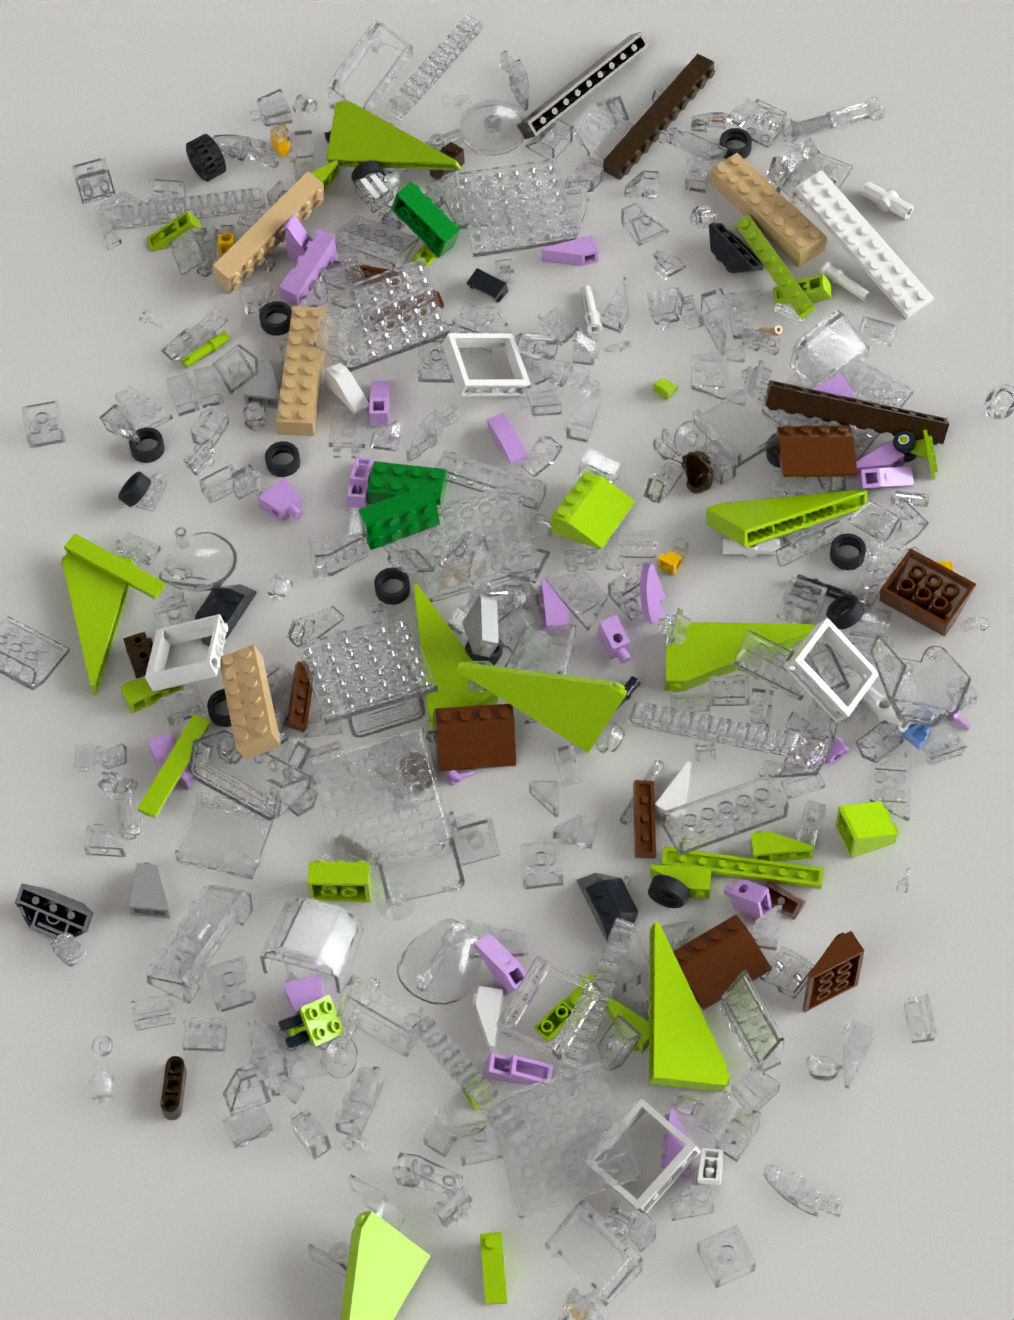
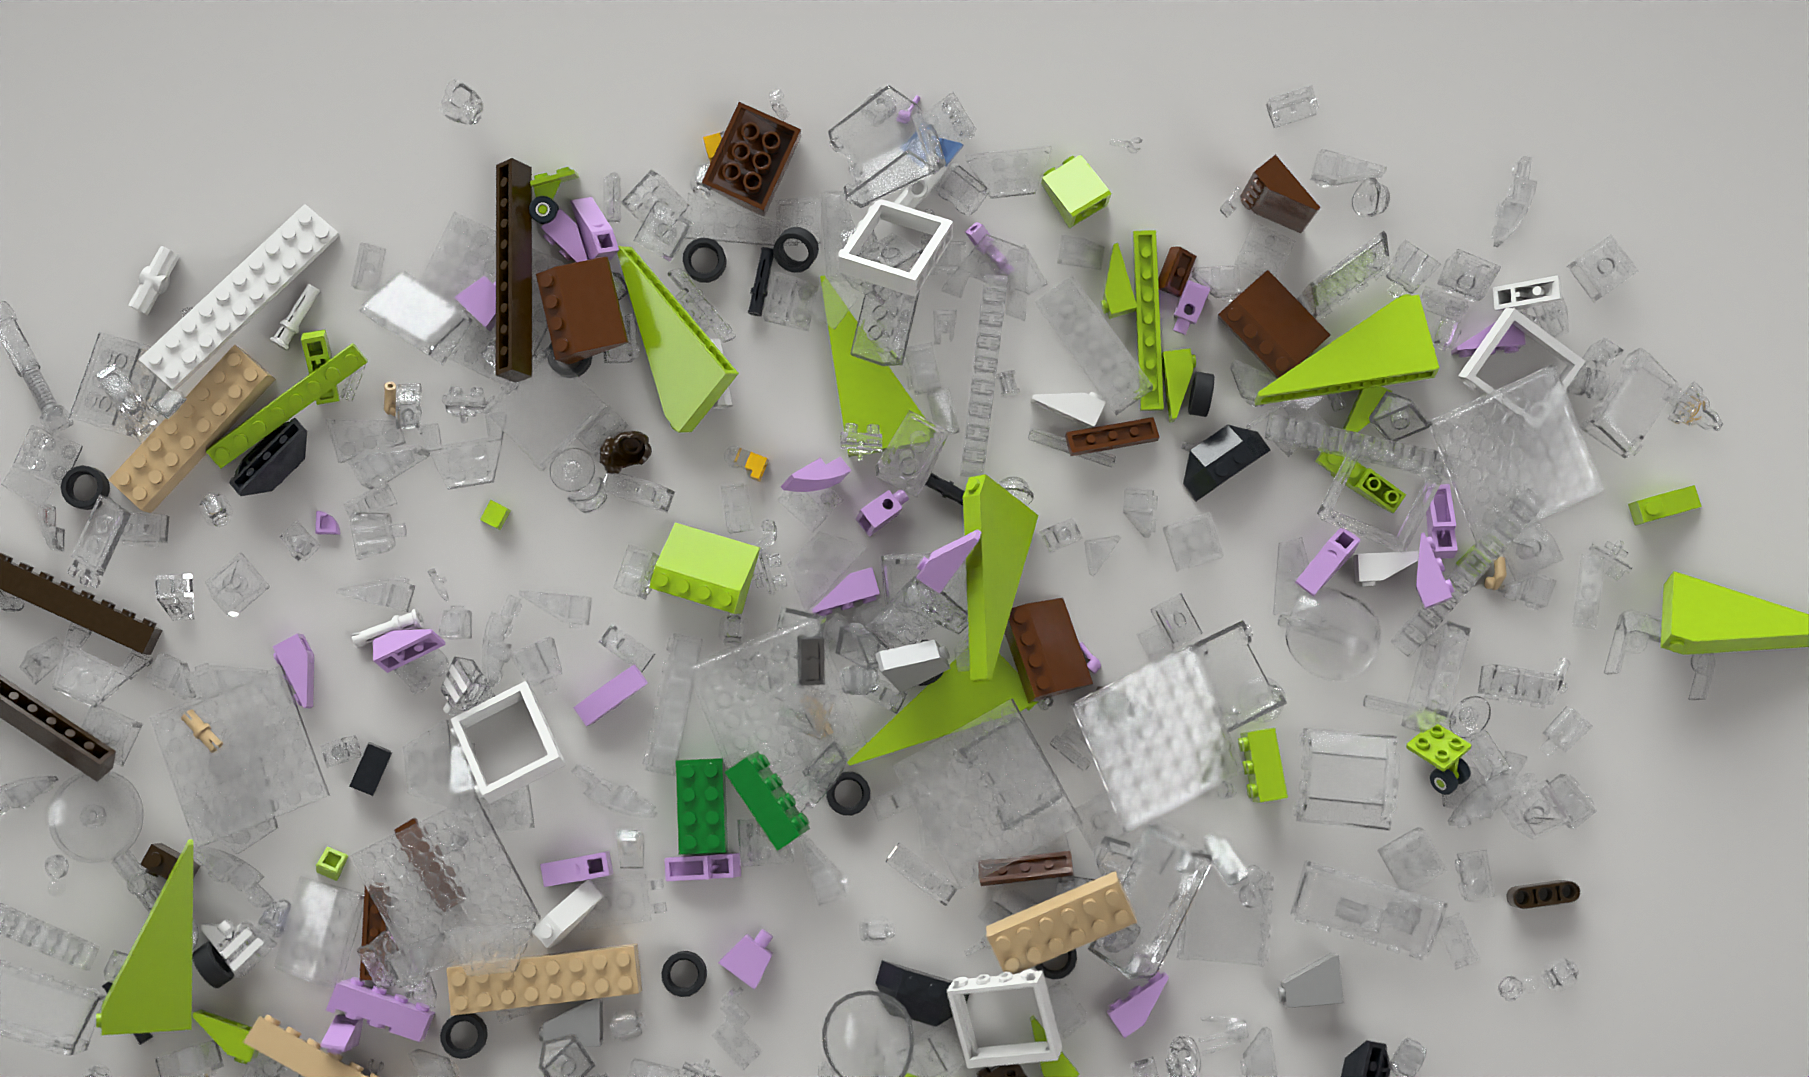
camera: 100 degrees left, 25 degrees up
(173, 767) = (1155, 995): lime tile -> none
(268, 839) = (1225, 860): none -> clear bracket
(304, 991) = (1412, 774): lavender torso -> none
(425, 219) = (284, 868): green brick -> none
(461, 1110) = (1500, 574): none -> tan arm
(470, 1035) = (1430, 581): none -> lavender slope
(501, 554) = (811, 660): none -> black hinge
(538, 183) = (202, 731): none -> tan pin
(556, 654) = (945, 561): none -> lavender slope
(572, 310) = (404, 646): none -> lavender slope
(656, 663) = (912, 454): none -> clear slope
(681, 282) = (326, 524): none -> lavender tile
(794, 626) = (831, 302): none -> clear piece

